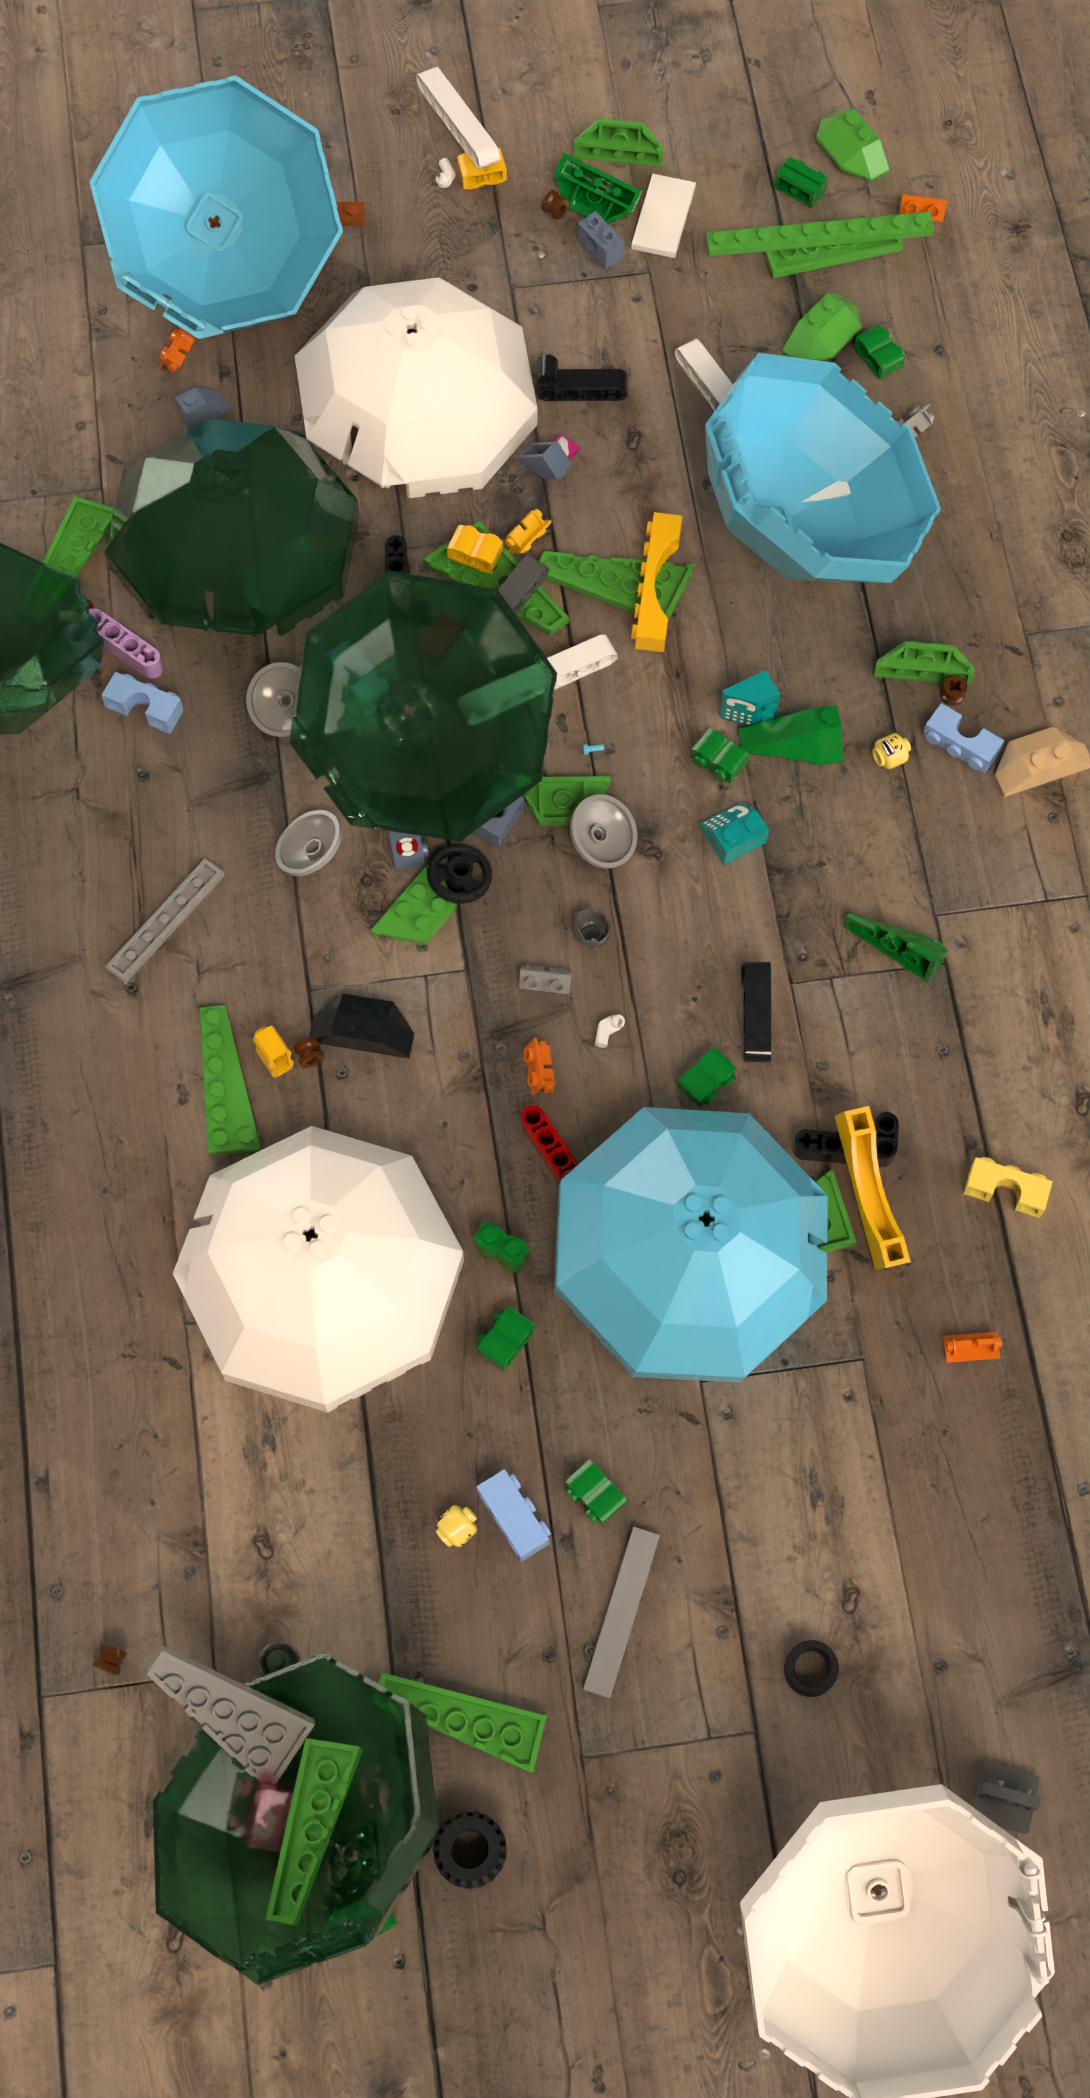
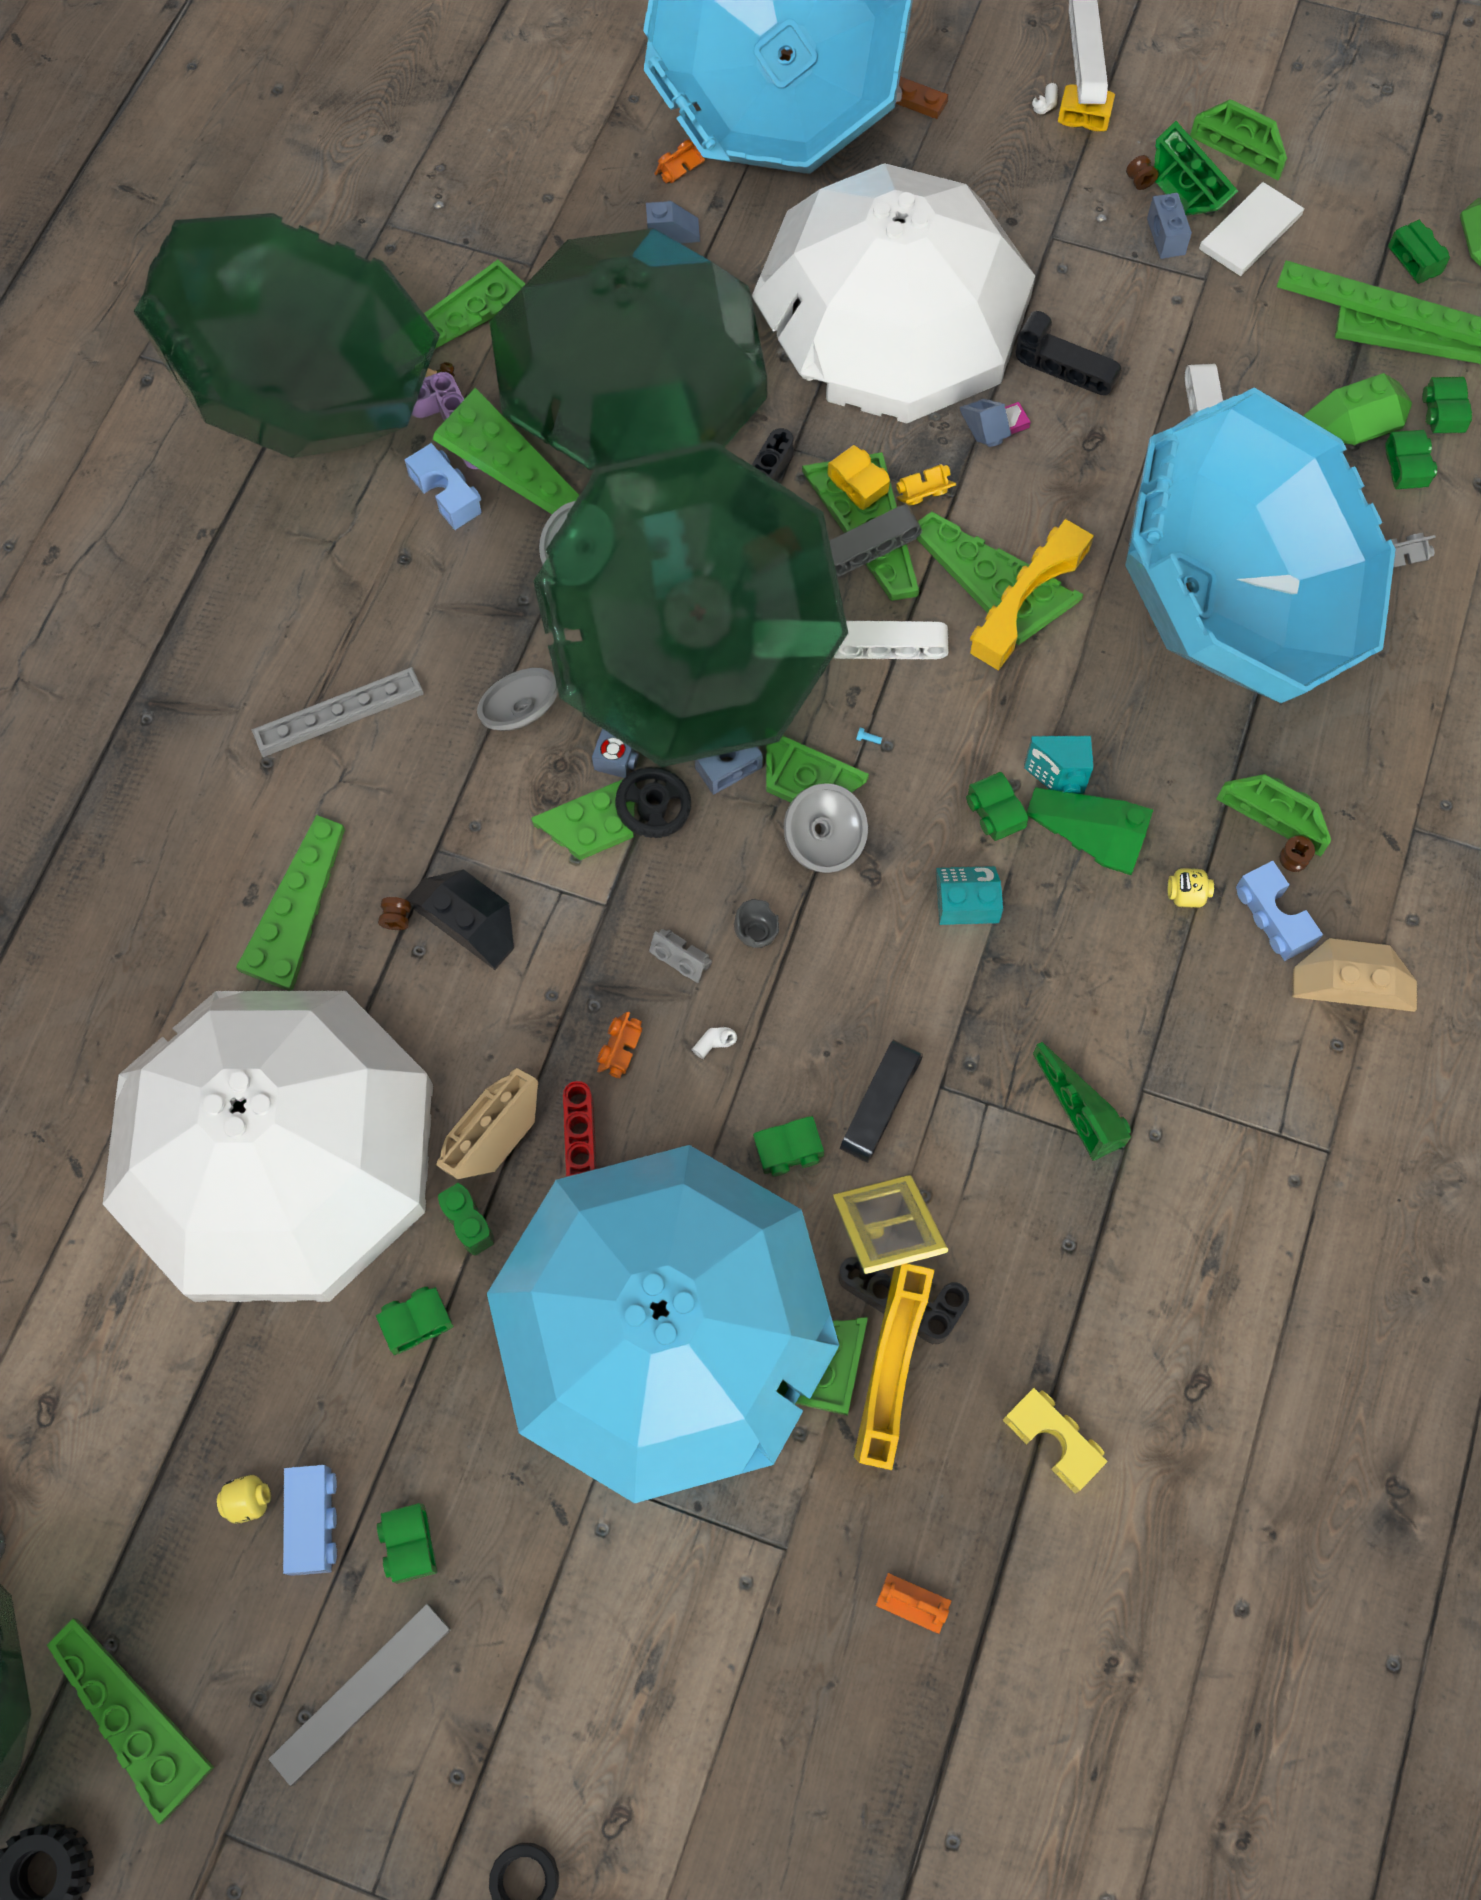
camera: 30 degrees right, 0 degrees up
(167, 651) = (494, 446): none -> bright green wing
(272, 1051) = (355, 894): yellow brick -> none
(480, 1170) = (491, 1127): none -> tan wedge
(814, 1093) = (889, 1224): none -> clear door
(885, 296) = (1447, 405): none -> green brick

